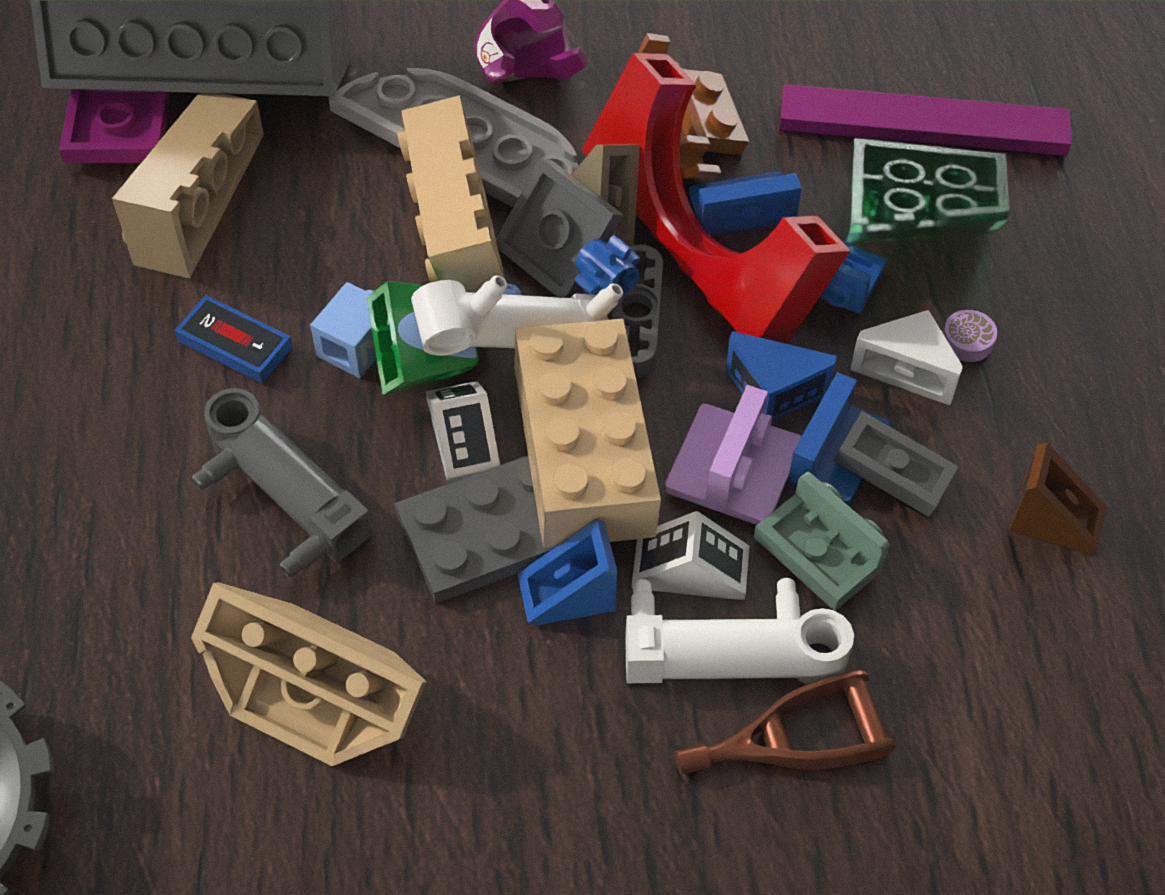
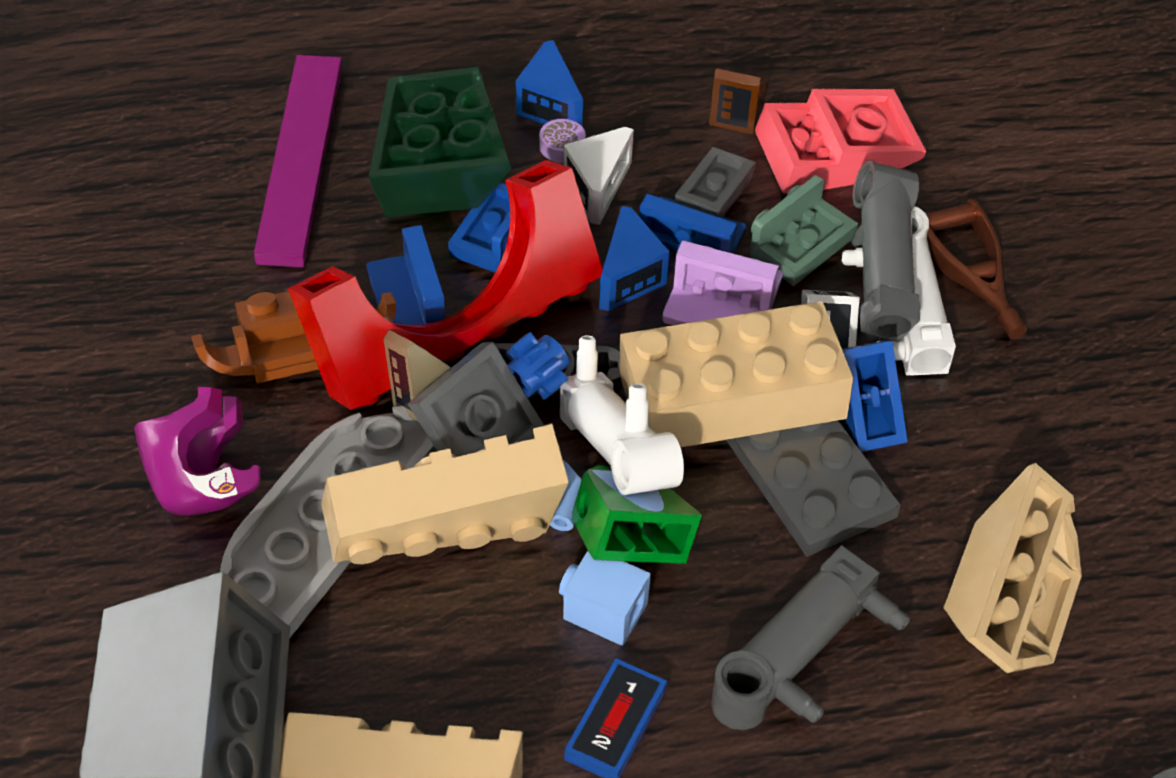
camera: 95 degrees left, 5 degrees down
(463, 429) = (720, 493): slope -> none
(821, 591) = (886, 203): none -> dark grey piece
(992, 606) = (836, 136): none -> coral slope
(1044, 318) = (547, 89): none -> blue slope

